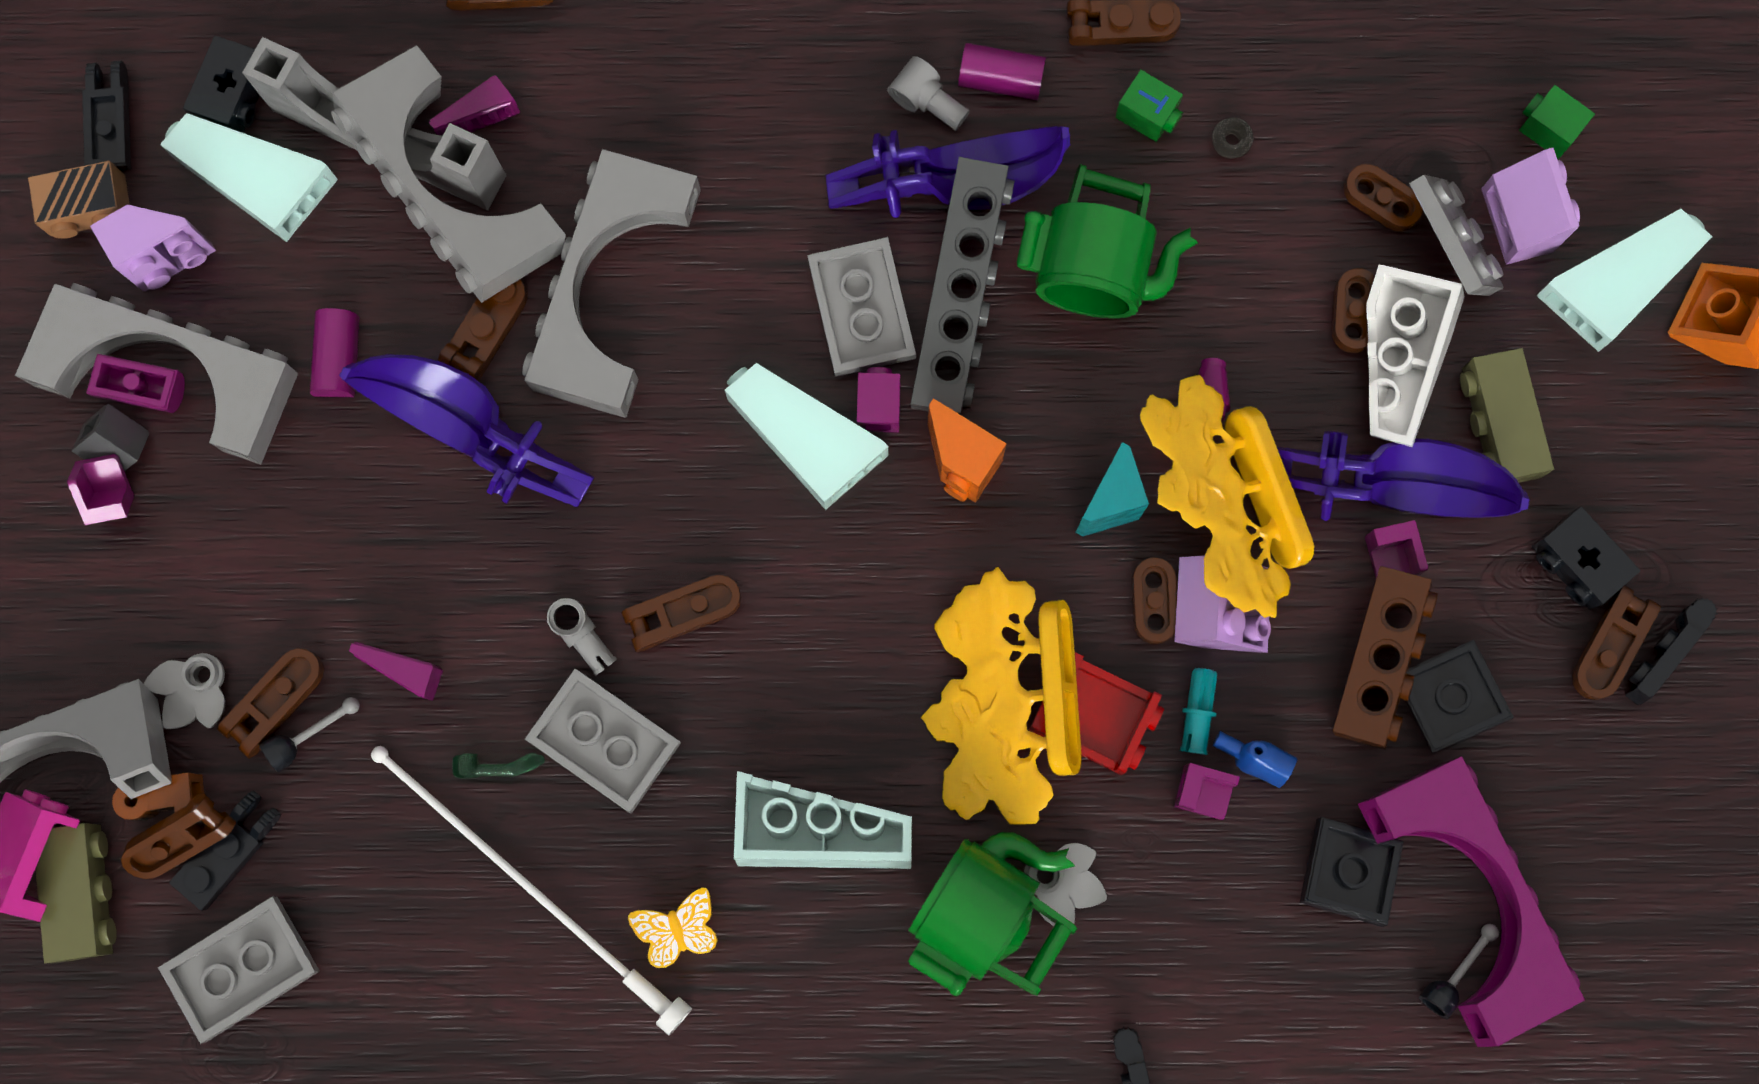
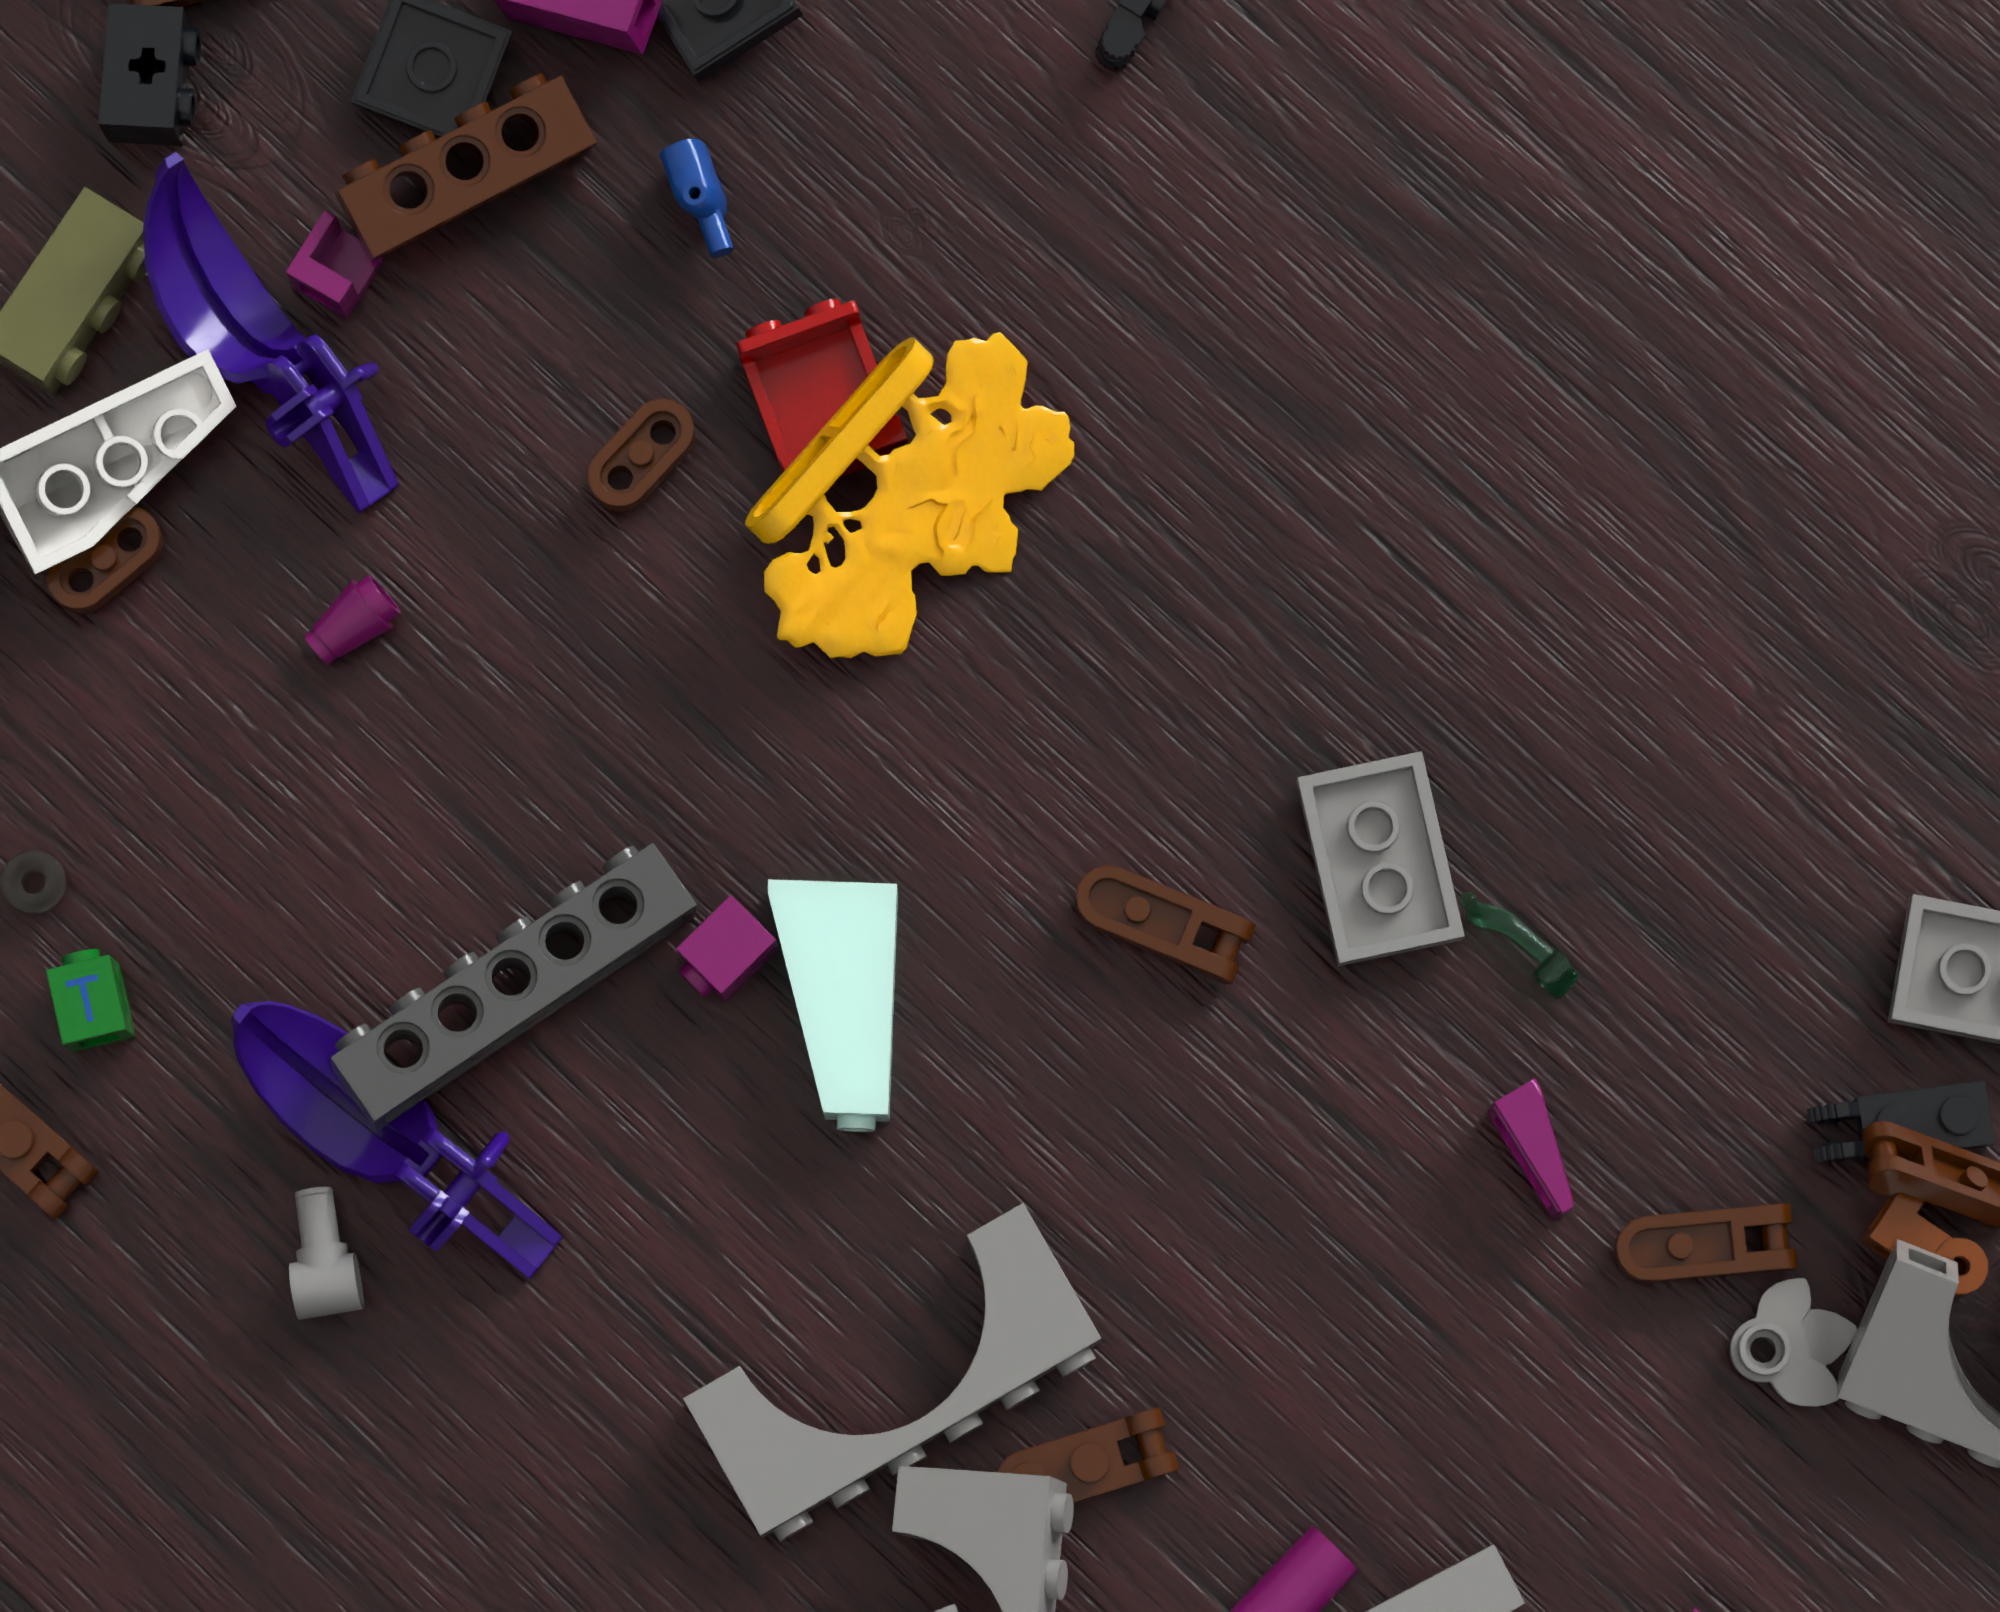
camera: 140 degrees left, 0 degrees up
(282, 750) = (1743, 1177): hinge -> none
(466, 418) = (1202, 1360): dark purple piece -> none
(581, 636) = (1298, 999): light grey pin -> none
(671, 1013) = (1567, 504): white piece -> none
(676, 930) = (1482, 583): animal -> none
(811, 829) = (1248, 556): light aqua wedge -> none
(861, 306) = (640, 1078): light grey plate -> none
(963, 452) = (697, 793): orange slope -> none
(984, 914) = (1146, 296): green piece -> none
(1001, 71) = (208, 1208): magenta brick -> none
(1072, 886) = (1025, 252): light grey plate -> none
(1099, 255) = (321, 872): green piece -> none
(1118, 497) = (577, 596): teal slope -> none
(1199, 711) = (711, 297): teal axle -> none
(1205, 791) = (788, 215): magenta panel -> none
(1212, 493) = (467, 502): yellow plant -> none
(1213, 621) = (573, 381): lavender slope -> none

